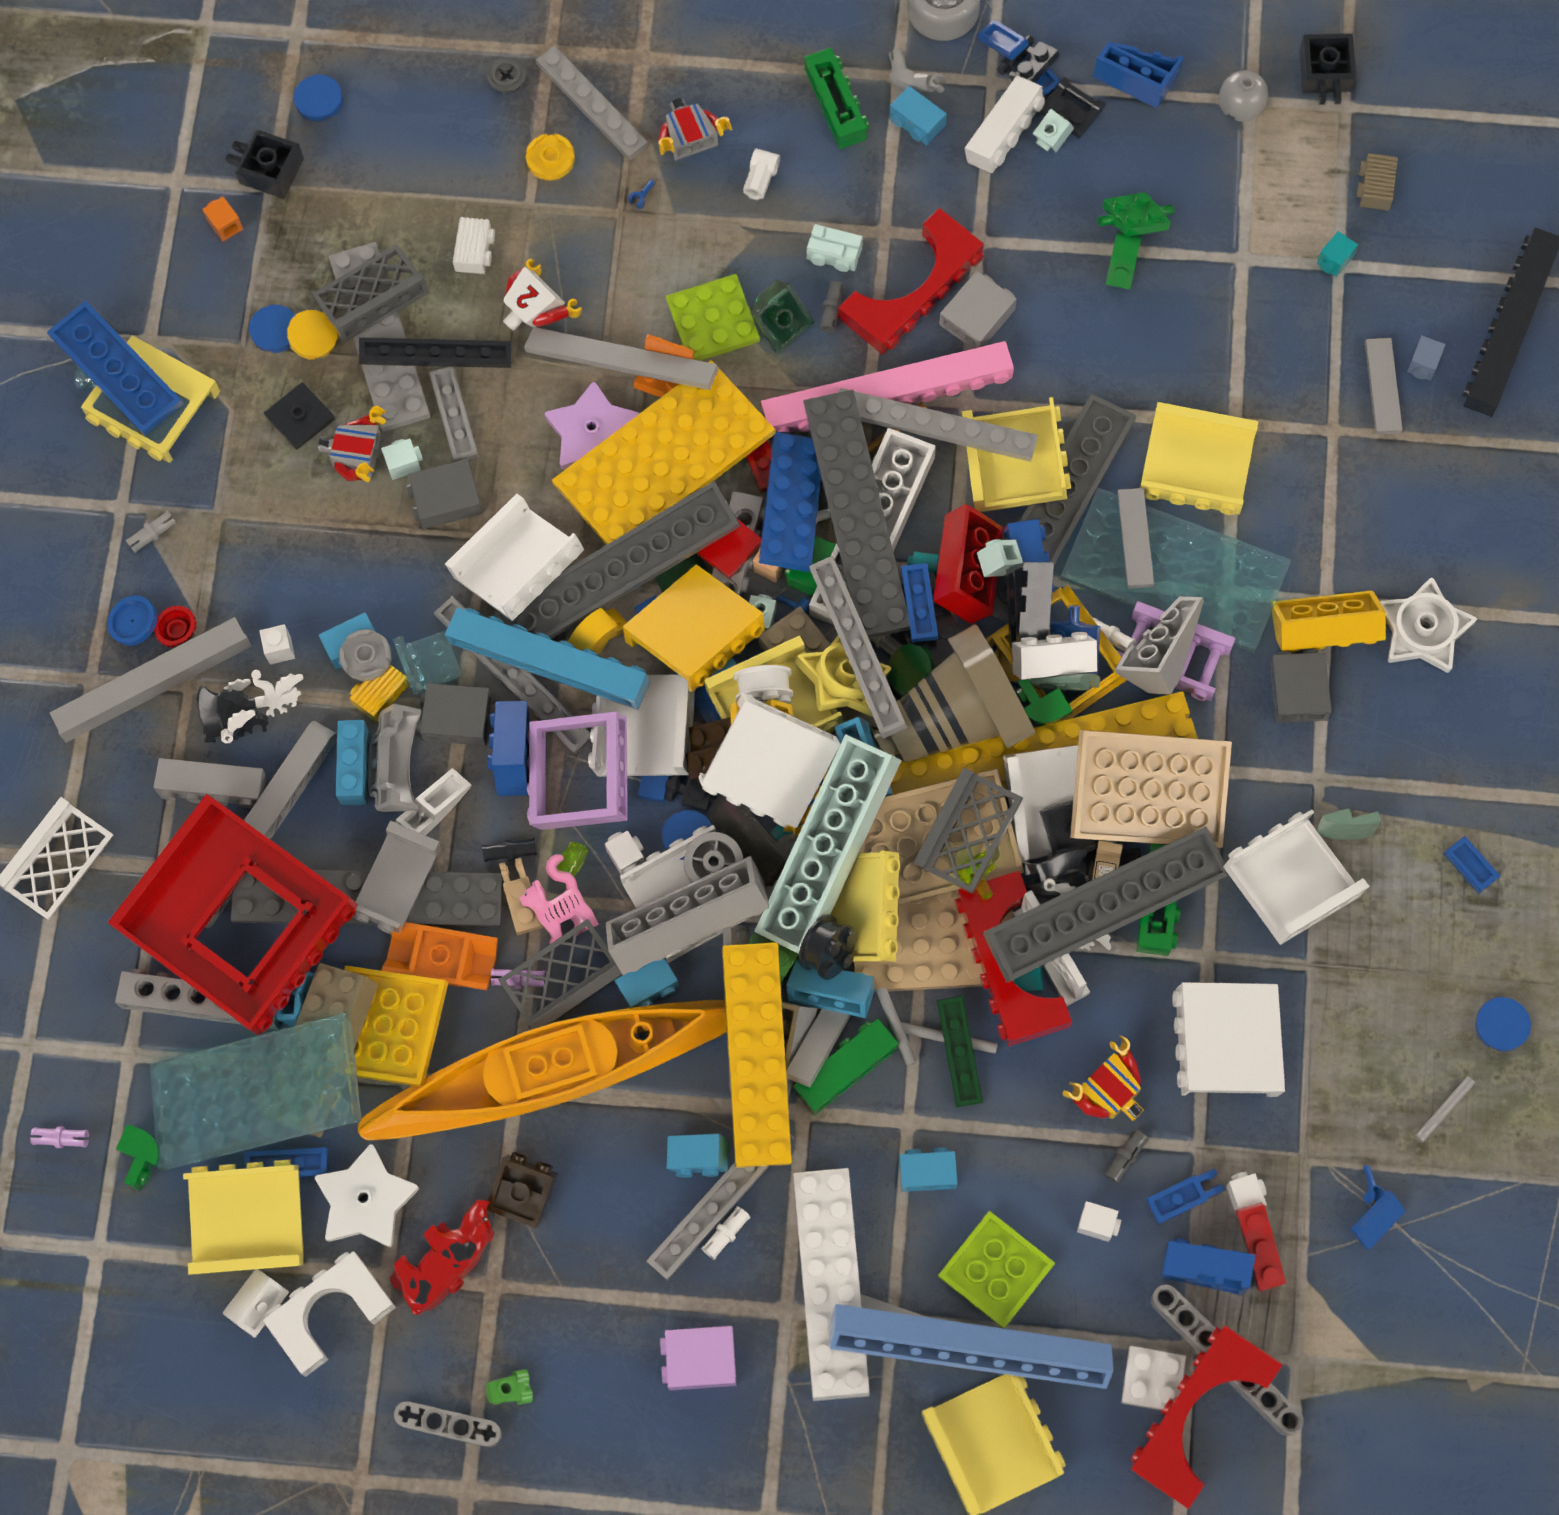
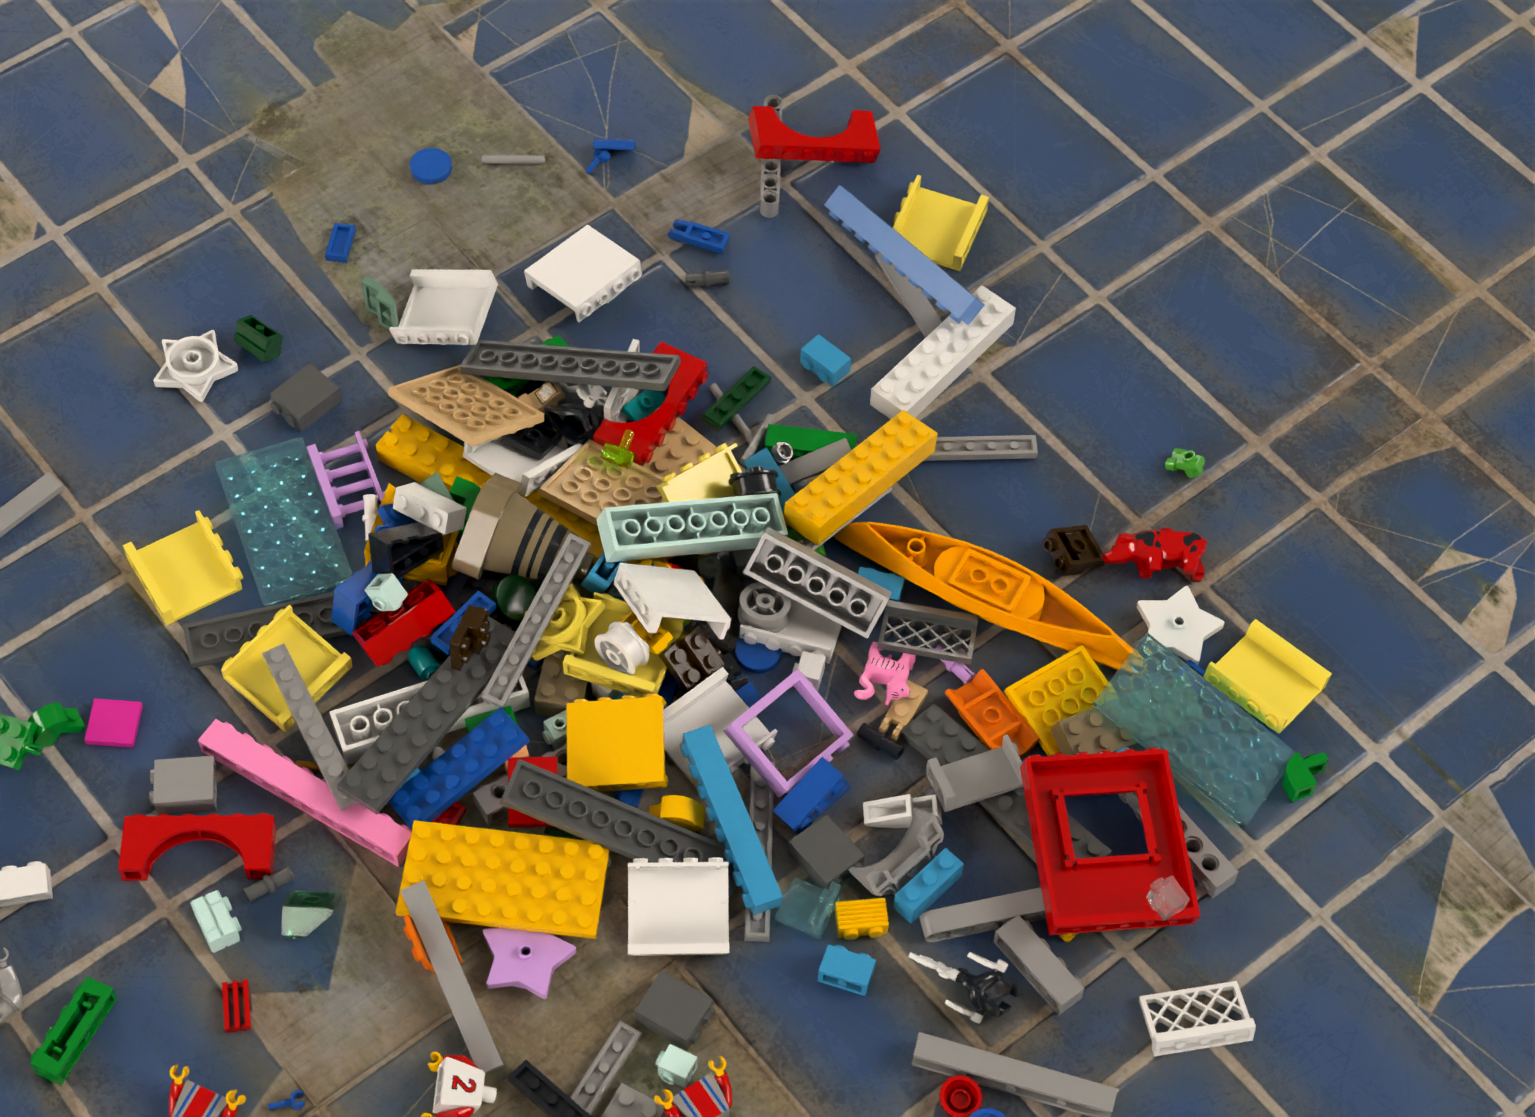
camera: 140 degrees left, 15 degrees down
(59, 1137) = (1347, 833): lavender pin -> none
(139, 899) = (1167, 897): none -> clear brick
(254, 1301) = (1303, 634): white panel -> none
(277, 644) = (900, 1014): white brick -> none
(290, 1320) = (1230, 597): white arch -> none
(365, 655) = (849, 937): light grey tile -> none
(448, 1421) = (1236, 481): light grey beam -> none
(574, 858) = (845, 697): clear neon green piece -> none
(697, 1154) = (949, 474): dark azure brick -> none
(698, 1358) = (1057, 386): lavender brick -> none
(713, 318) = (352, 959): lime plate -> none
(725, 1233) = (975, 430): white pin -> none
(736, 204) = (226, 1006): none -> red tile
(762, 168) = (184, 1030): white piece -> none
(803, 603) = (527, 713): blue hand -> none
(847, 1022) = (786, 451): none -> light grey plate
(886, 578) = (469, 636): none -> dark brown plate
(917, 116) = (40, 958): dark azure brick -> none
(946, 823) = (600, 486): dark grey fence -> none
(996, 1270) = (843, 289): lime plate -> none
(1089, 307) = (113, 723): none -> dark pink tile
(1099, 1222) = (761, 262): white brick -> none
(1110, 1086) = (675, 310): torso -> none
(1135, 538) = (283, 553): light grey tile -> none
(1152, 1377) = (817, 182): white plate -> none
(1162, 654) = (360, 471): light grey wedge -> none
(1207, 1266) = (727, 193): blue wedge -> none
(1246, 1190) = (667, 207): white brick -> none
(1261, 1243) = (690, 179): red plate -> none
(1329, 621) = (239, 414): yellow slope -> none
(1403, 694) = (258, 338): none -> dark green brick

